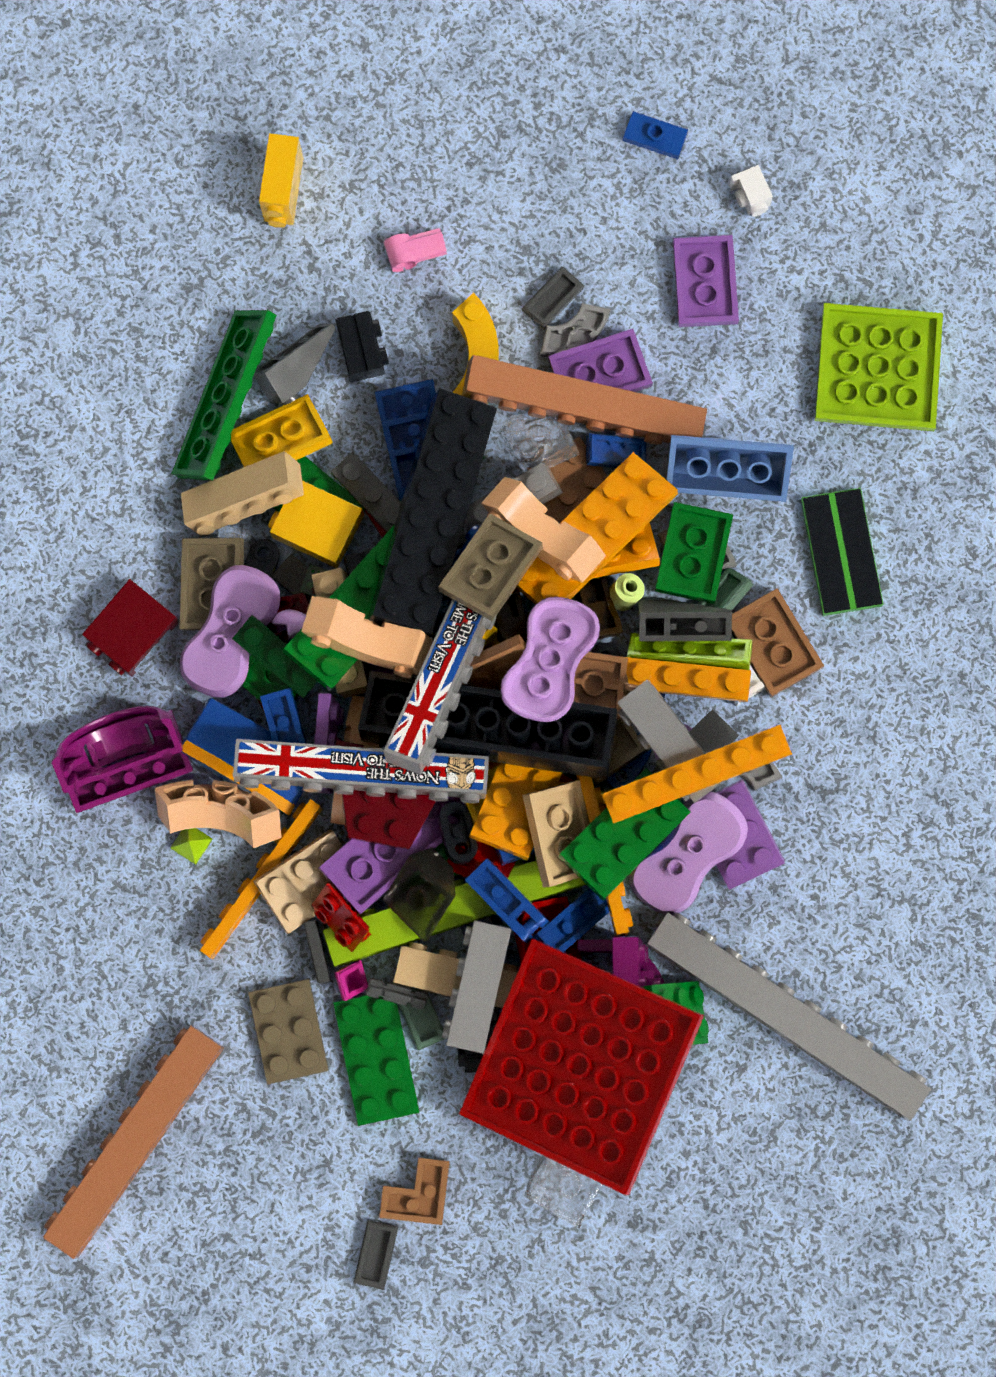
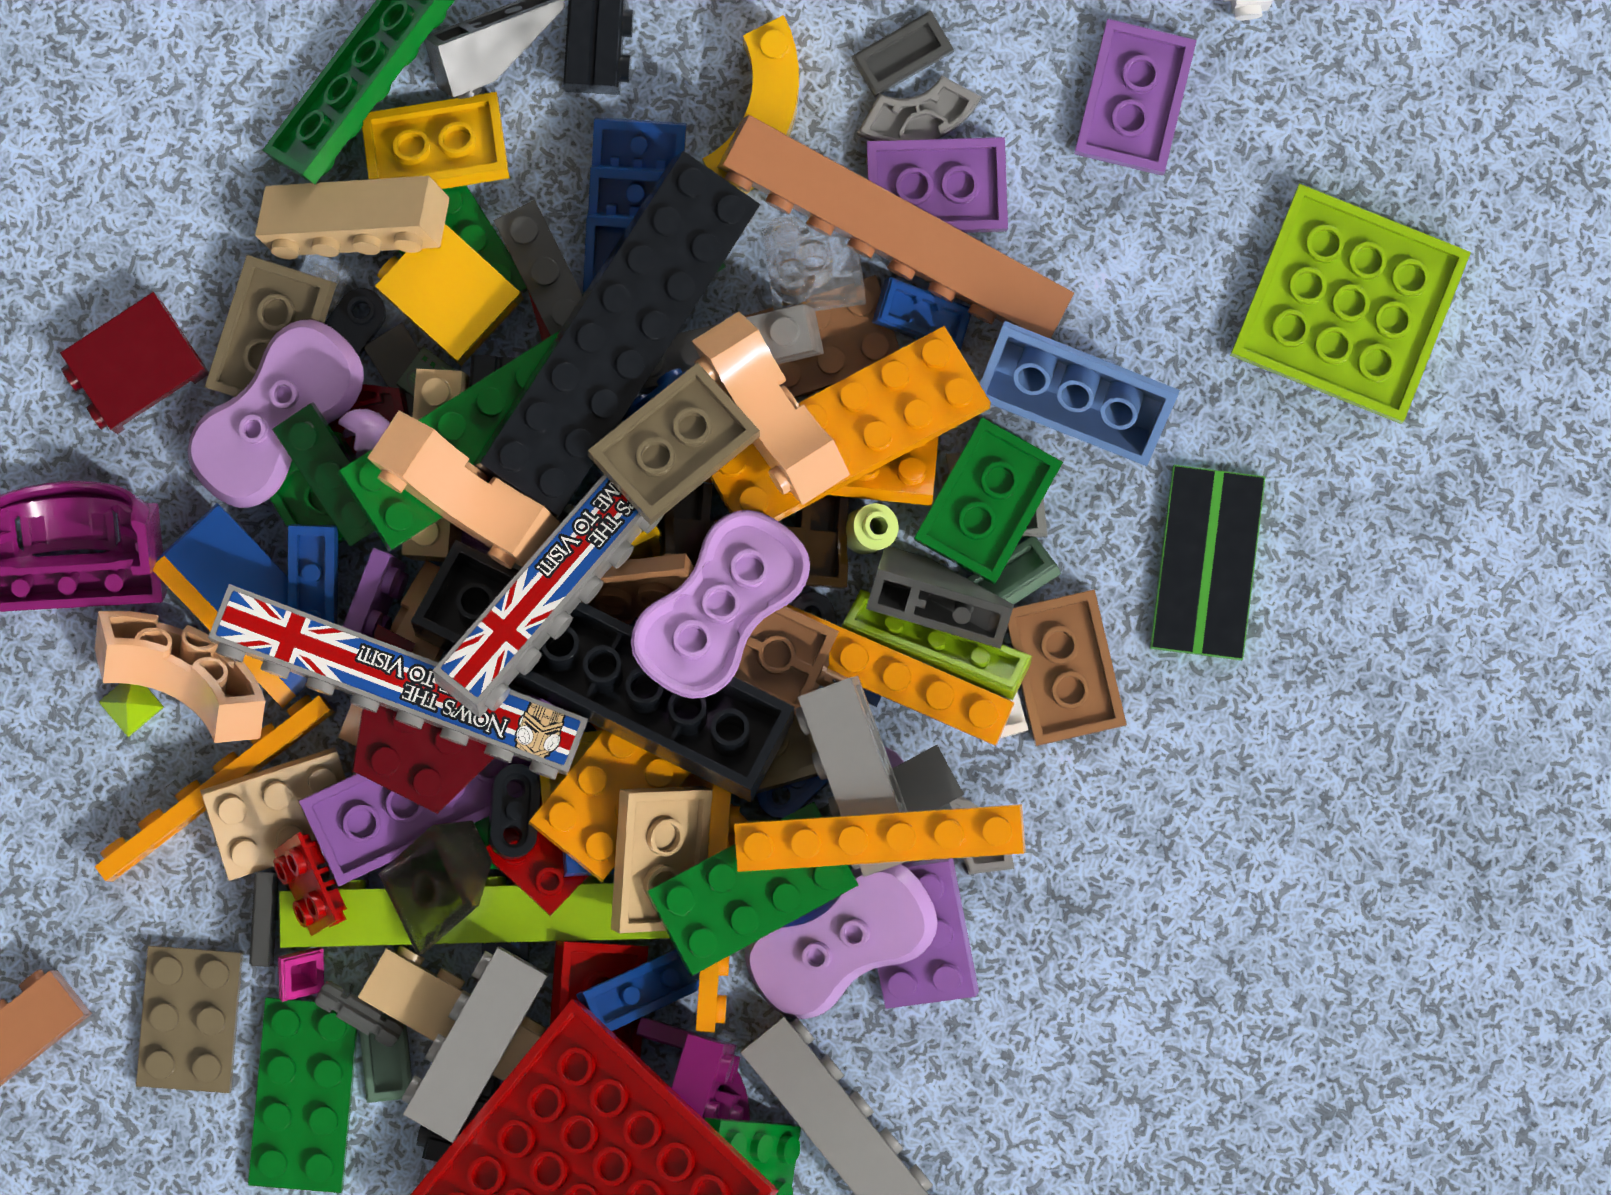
camera: 15 degrees right, 5 degrees up
(506, 899) = (553, 930): blue plate -> none

